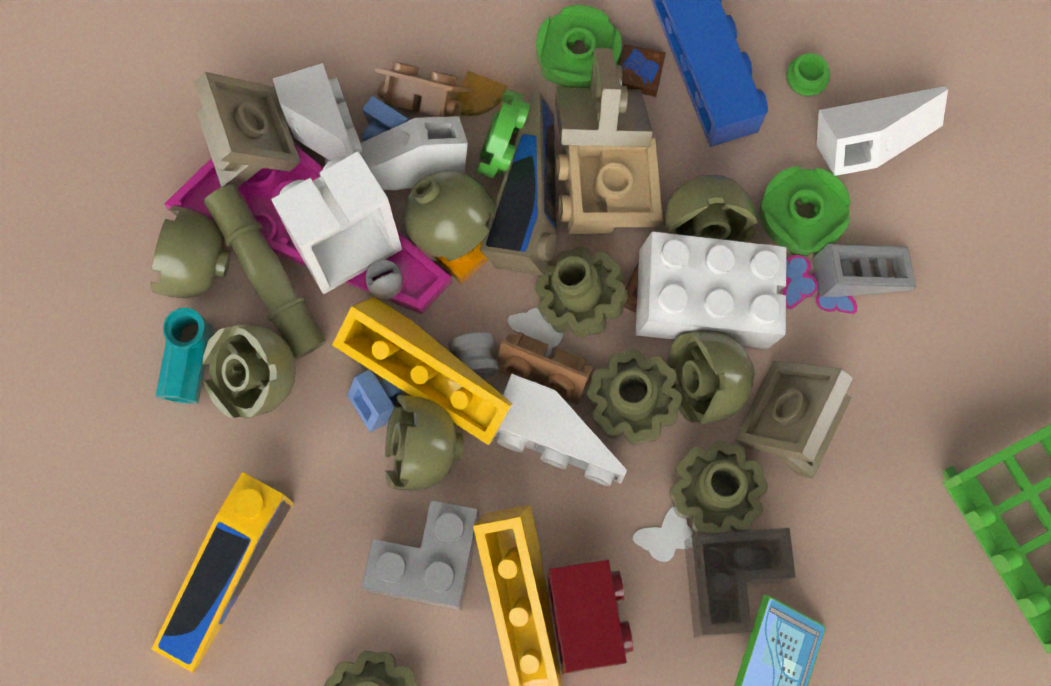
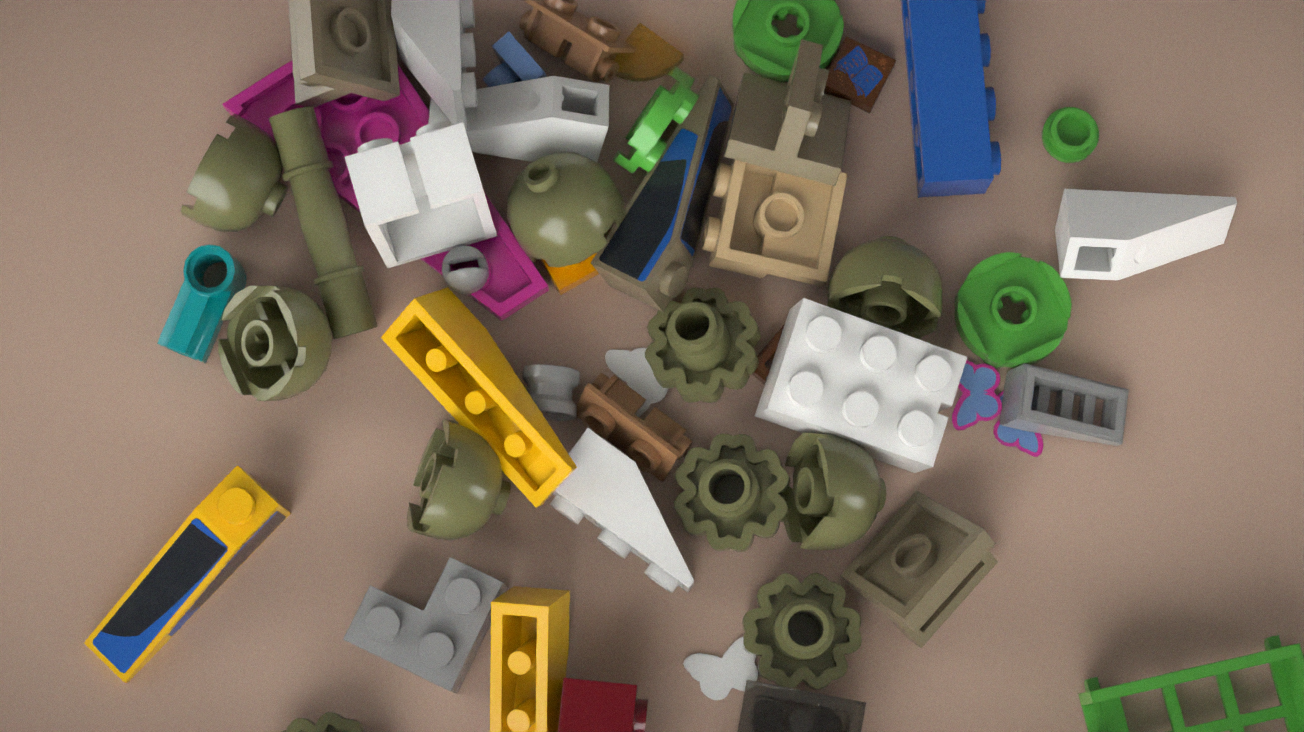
camera: 15 degrees right, 5 degrees up
(373, 399) = (414, 414): medium blue tile -> none

